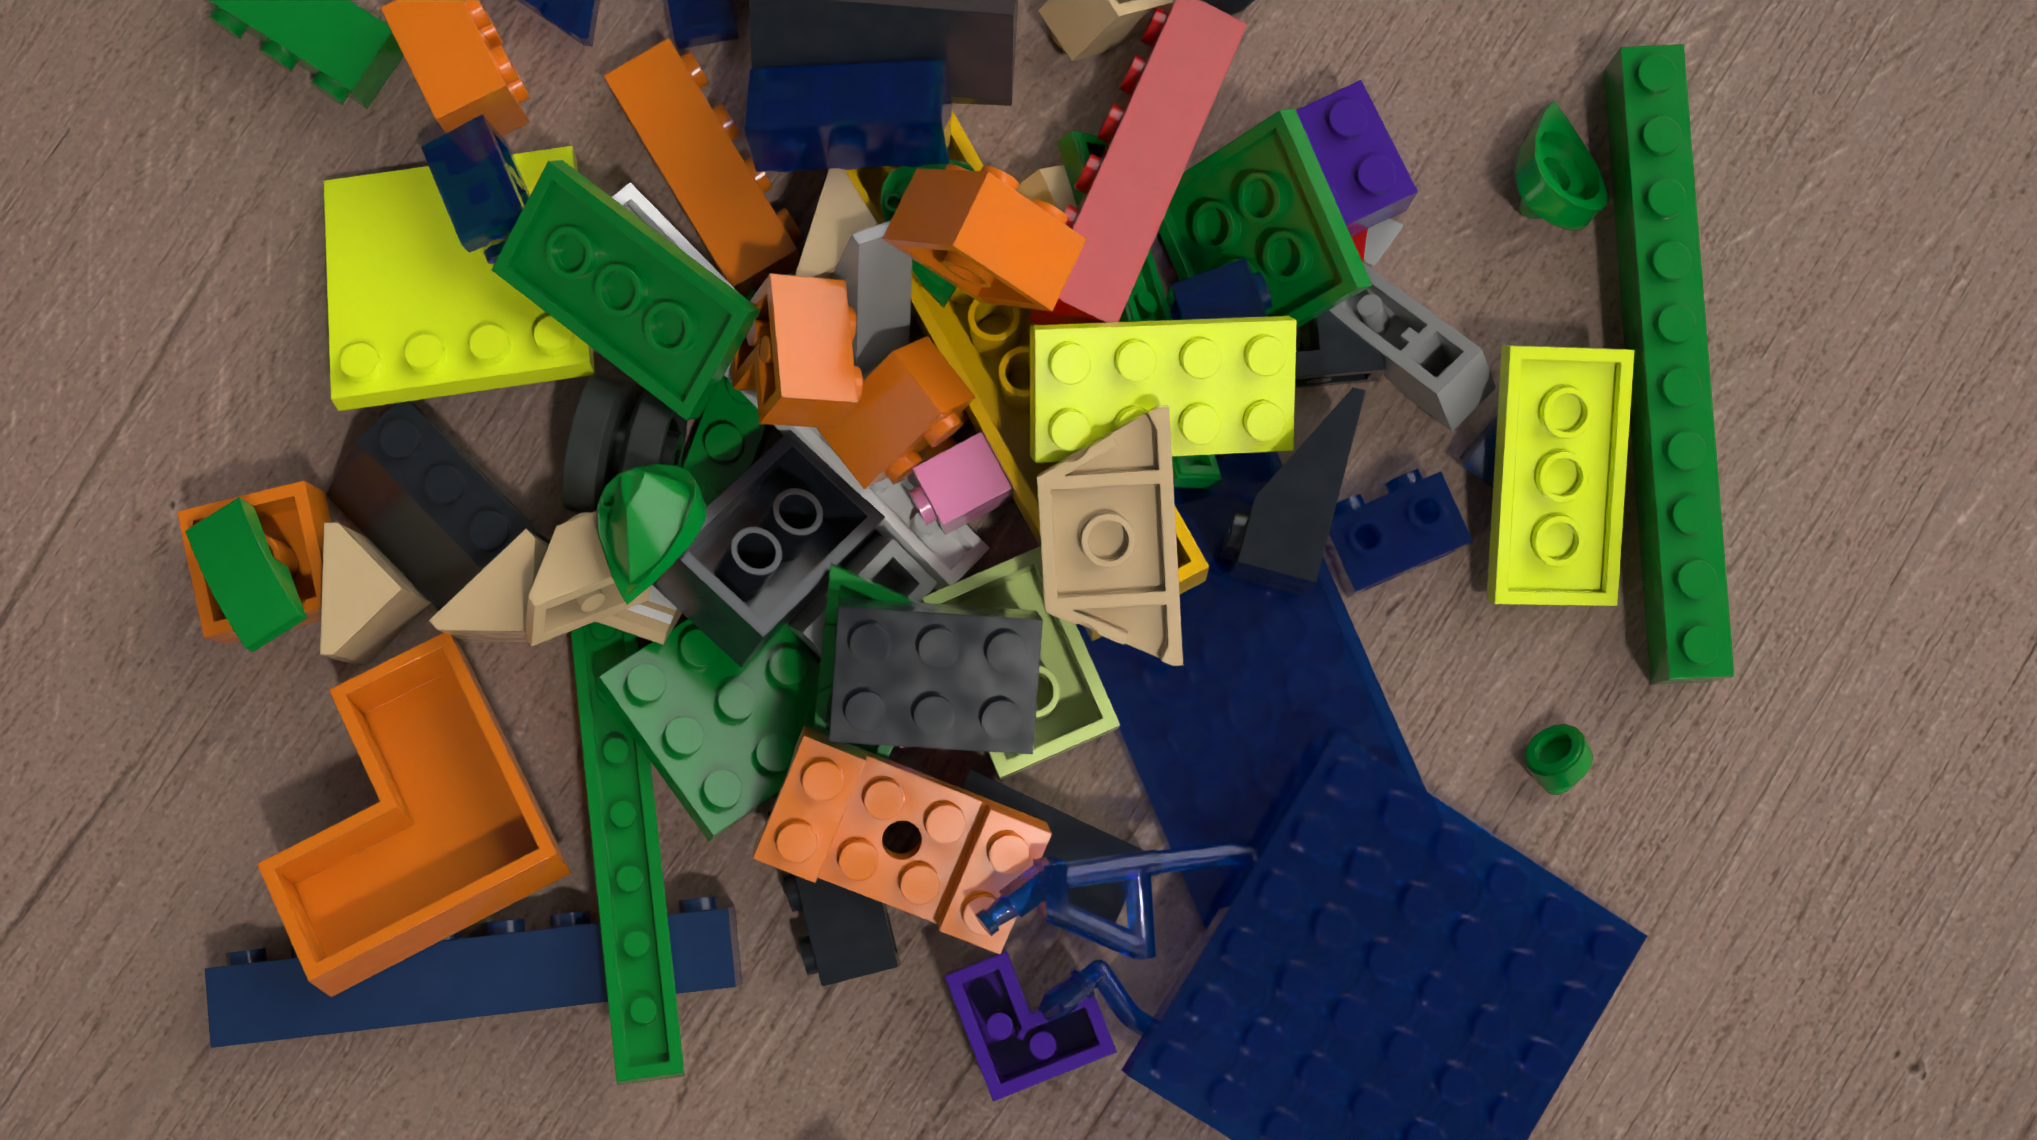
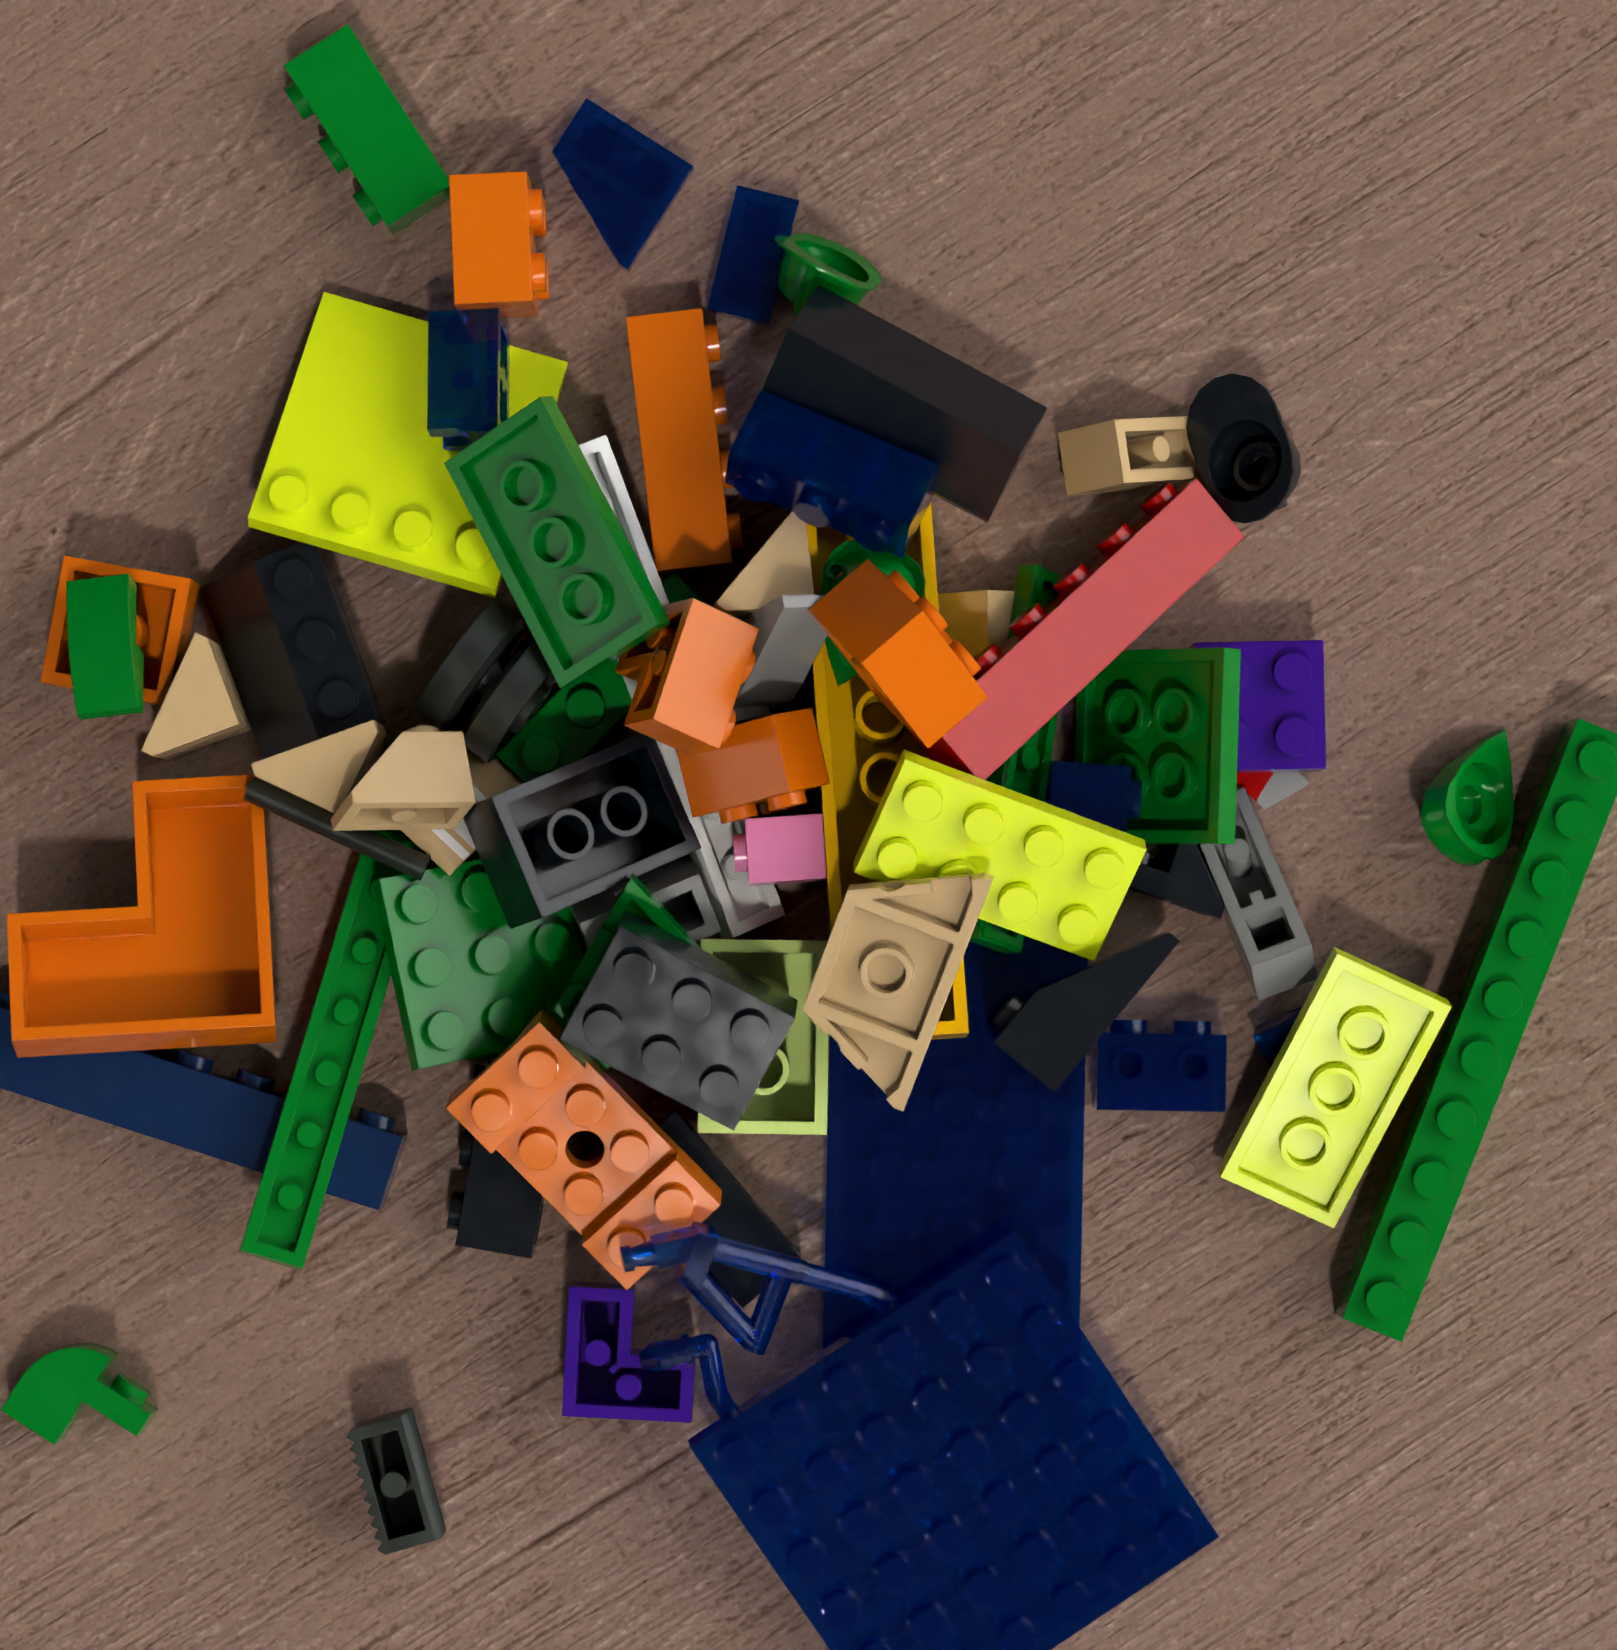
camera: 25 degrees right, 5 degrees up
(516, 647) = (319, 821): none -> pearl dark grey bar
(648, 523) = (484, 770): green piece -> none
(1558, 758) = (1214, 1341): green tile -> none

